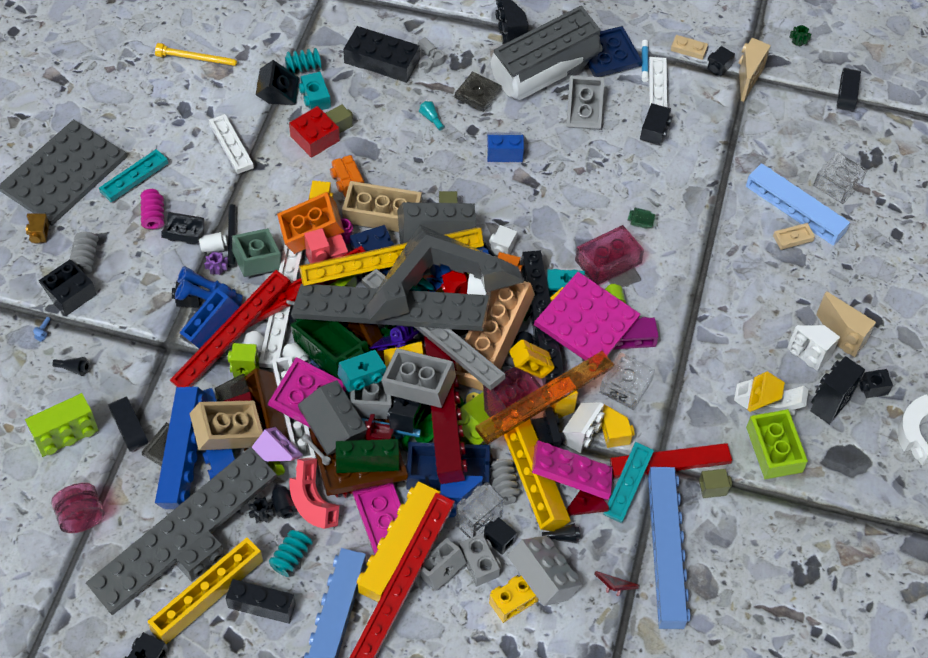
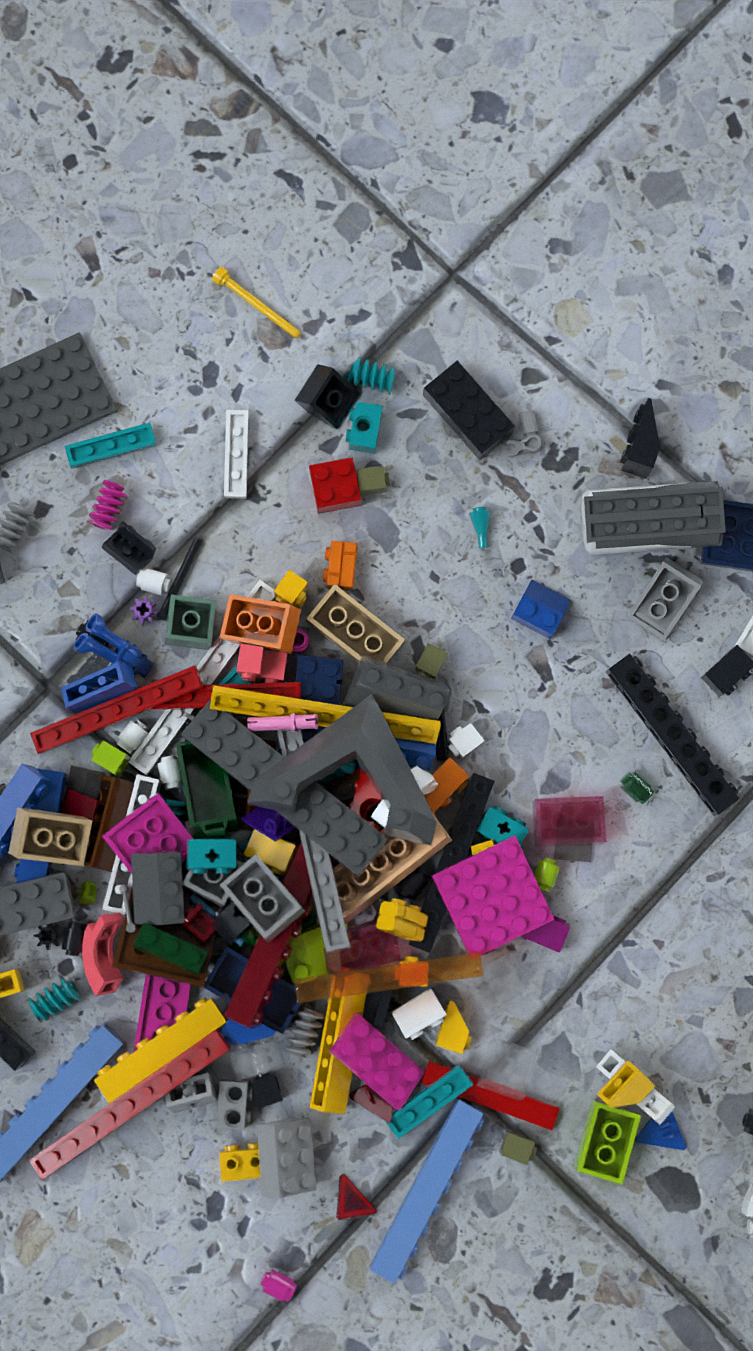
camera: 25 degrees right, 25 degrees up
(275, 446) = (88, 889): lavender slope -> none
(370, 267) = (290, 722): none -> bright pink pin
(478, 91) = (551, 518): clear smoke plate -> none
(567, 534) = (336, 1122): black cone -> none
(644, 177) = (673, 747): none -> black brick
(671, 430) = (507, 1068): none -> clear brick
(811, 425) = (663, 1135): none -> blue piece
(813, 344) = (723, 1054): white slope -> none
(836, 389) = (706, 1122): black brick -> none

